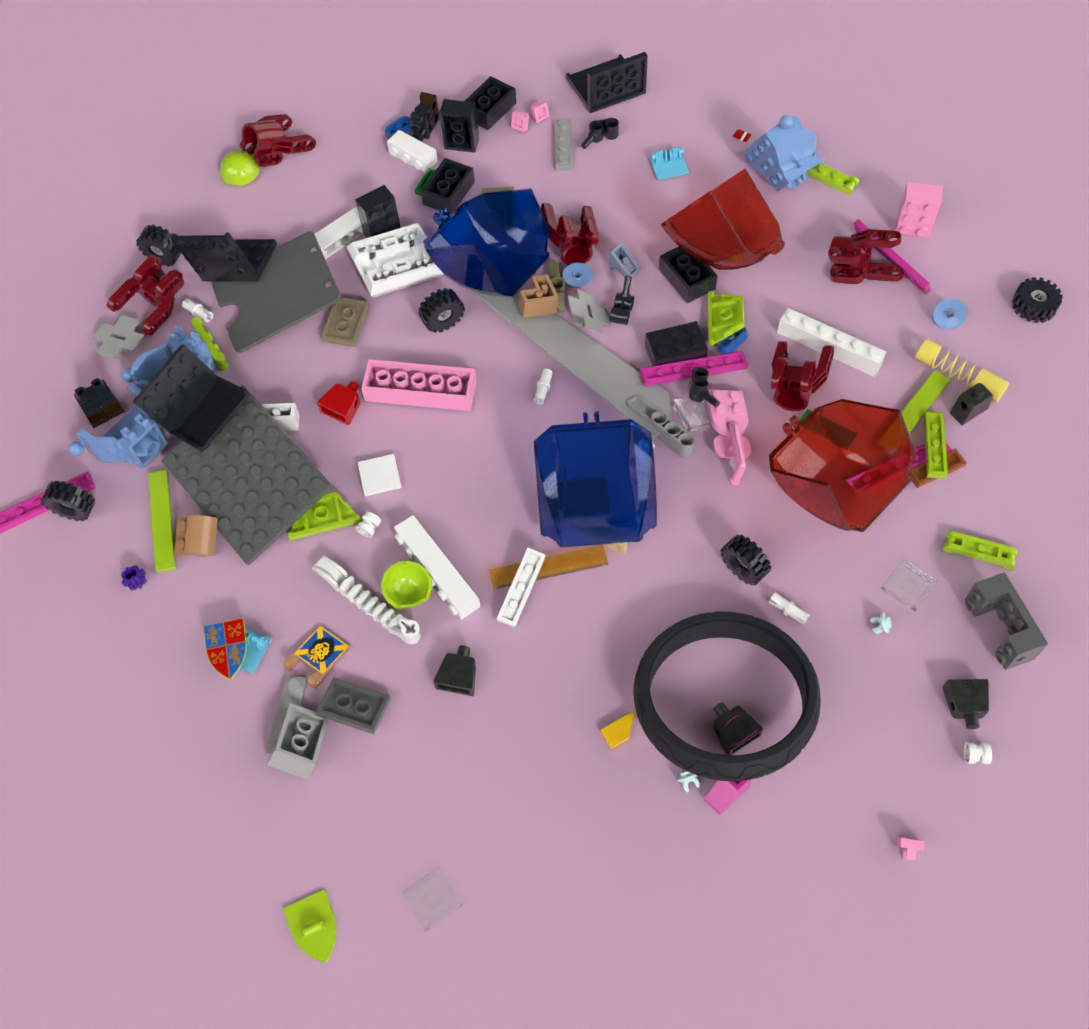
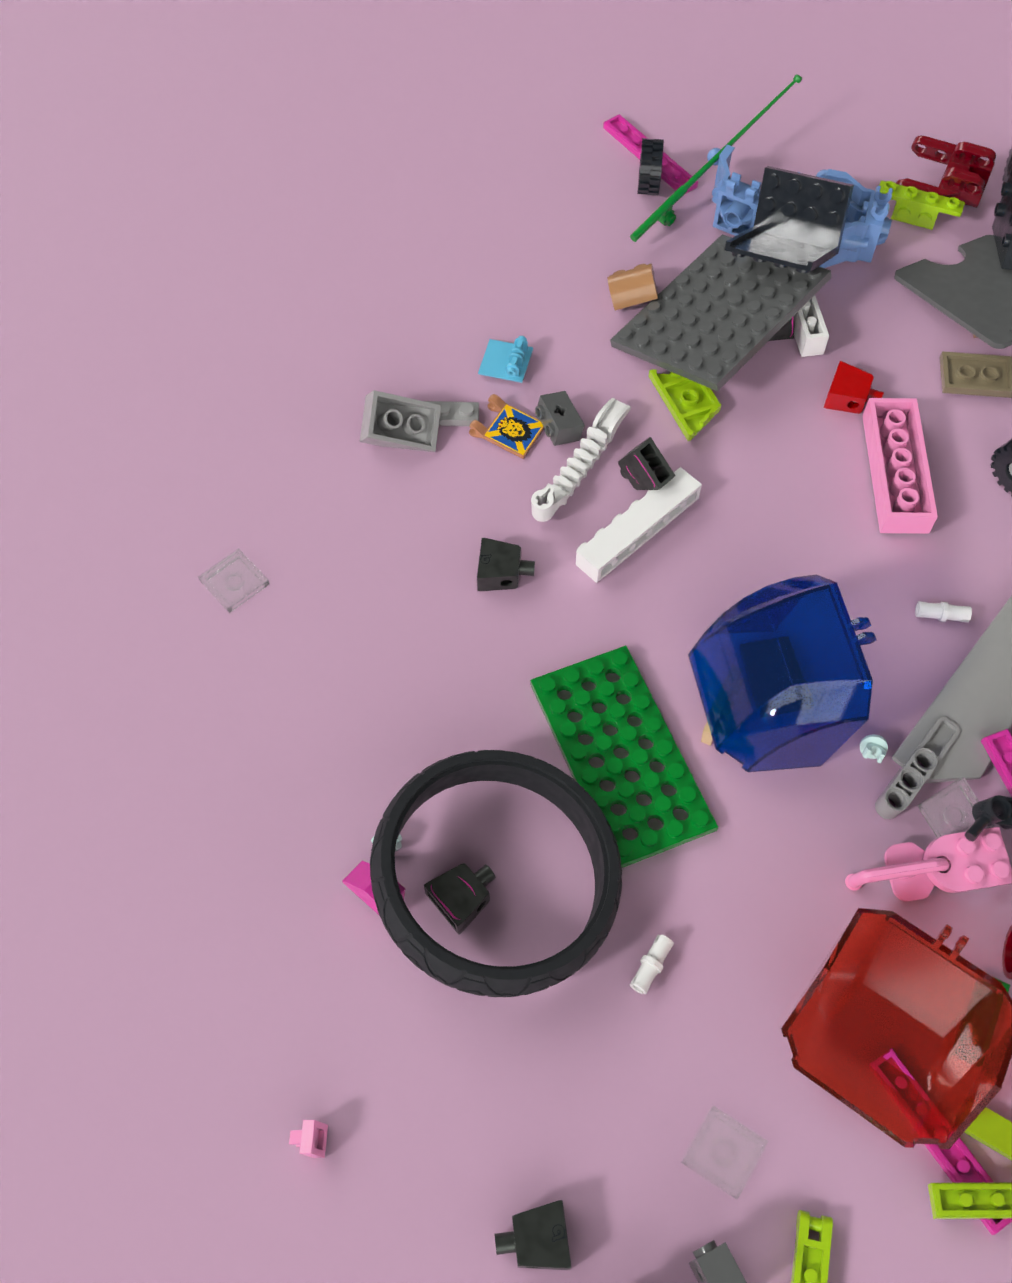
camera: 80 degrees right, 0 degrees up
(95, 396) = (783, 153): black hips -> none
(119, 501) = (664, 213): none -> green piece
(123, 340) = (888, 165): light grey piece -> none
(133, 577) = (574, 246): dark purple gear -> none
(162, 521) = (657, 255): lime tile -> none
(174, 315) = (918, 206): none -> lime bracket
(197, 310) = (943, 228): white pin -> none
(206, 337) = (899, 244): lime plate -> none
(226, 646) = (500, 336): shield -> none
(313, 925) = (206, 478): lime shield -> none
(321, 611) = (559, 418): none -> dark grey brick
(353, 705) = (448, 469): dark grey plate -> none
(368, 524) = (683, 445): white wheel -> none
(379, 475) = (758, 448): white tile -> none
(391, 549) = (646, 467): none -> pearl dark grey torso
(406, 585) = (602, 490): lime cylinder -> none
(521, 587) = (624, 618): white plate -> none
(554, 566) = (664, 652): clear yellow tile -> none
(611, 583) = (653, 727): none -> green piece
(618, 731) = (440, 747): yellow tile -> none
(745, 559) = (710, 890): black bush -> none
(884, 623) = (649, 1107): light aqua plate -> none
(919, 474) = (972, 1234): dark orange tile -> none
(977, 753) = (454, 1248): white wheel -> none

